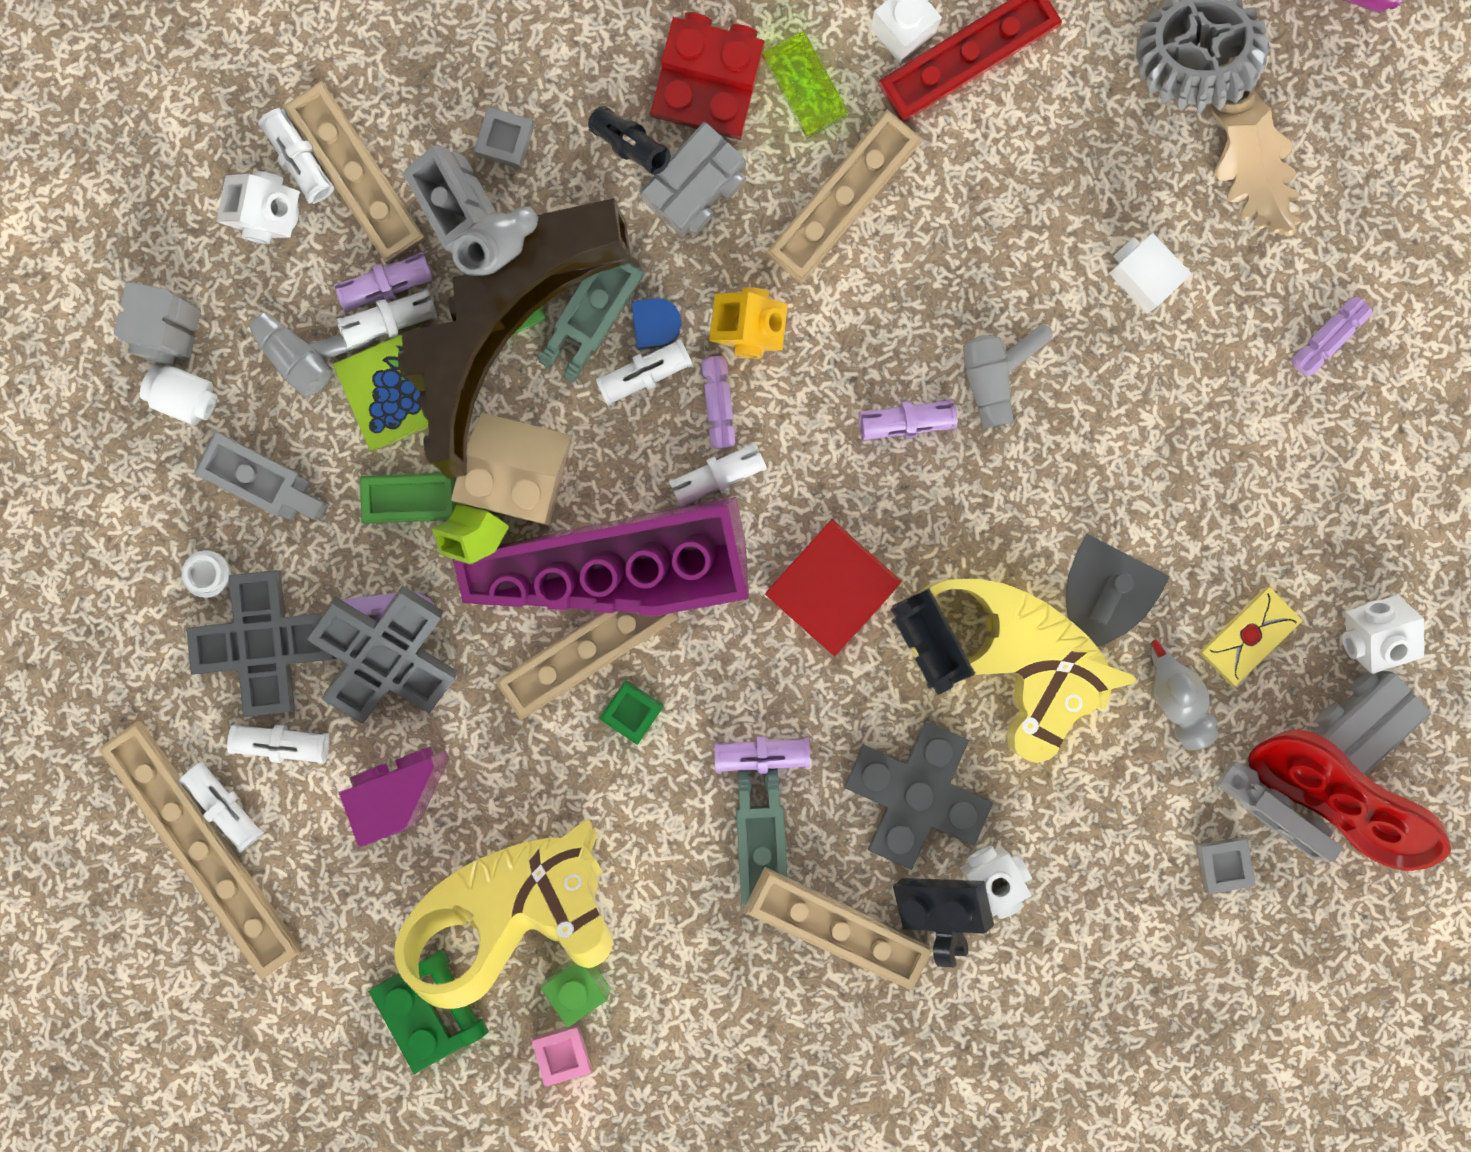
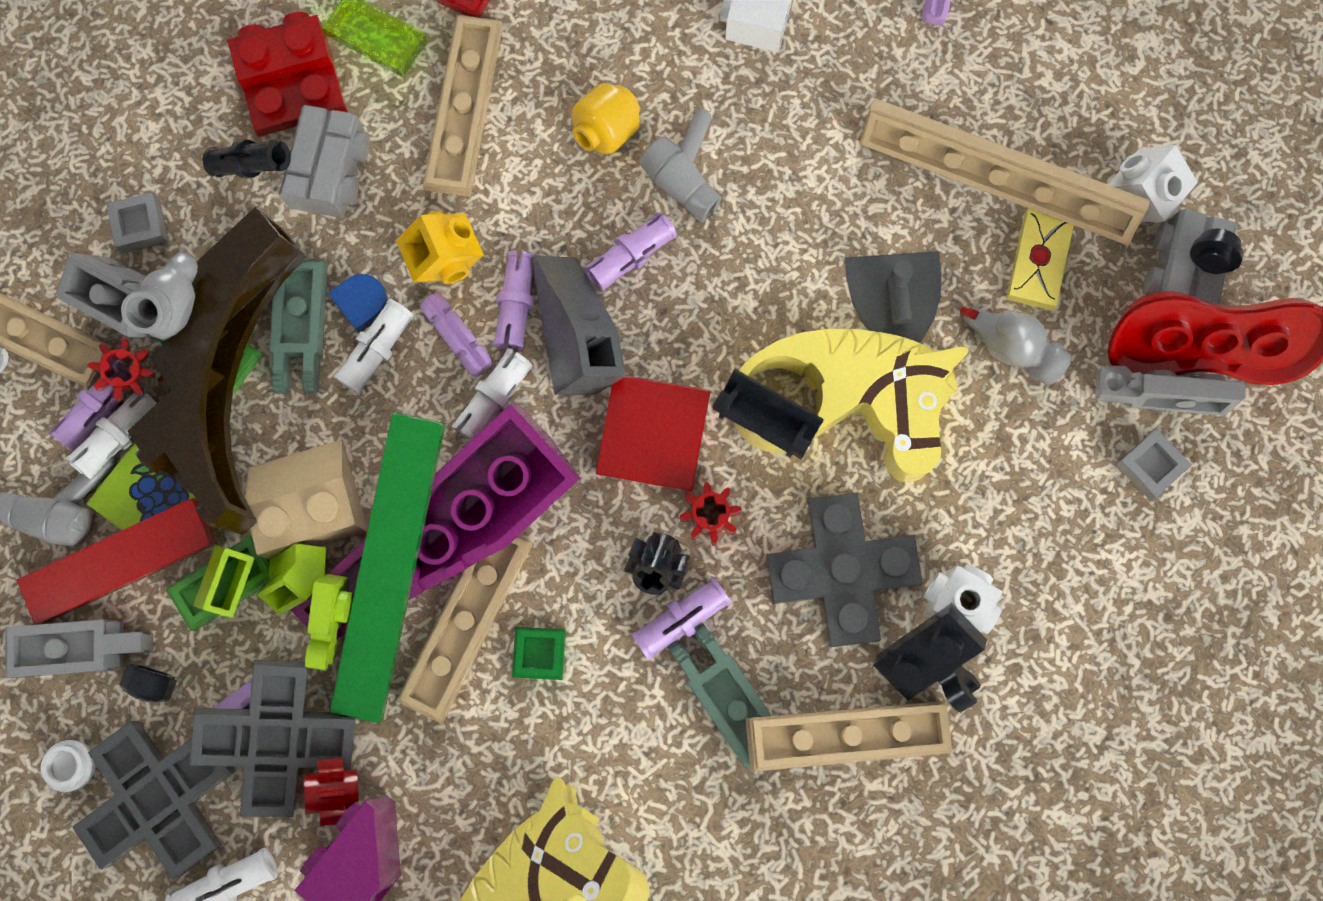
camera: 25 degrees left, 10 degrees down
(304, 547) = (147, 683): none -> black tile
(333, 431) = (116, 562): none -> red tile
(404, 724) = (330, 791): none -> red gear
(405, 498) = (213, 577): none -> lime piece
(415, 283) = (107, 370): none -> red gear
(484, 582) = (328, 611): none -> lime plate
(552, 573) = (387, 567): none -> green tile
(769, 700) = (657, 563): none -> black gear
(785, 403) = (515, 301): none -> lavender pin
(823, 460) = (577, 328): none -> dark grey slope
(842, 698) = (720, 504): none -> red gear
(958, 288) = (605, 118): none -> yellow head
(1265, 546) = (1003, 172): none -> tan tile
(1394, 730) = (1217, 251): none -> black plate

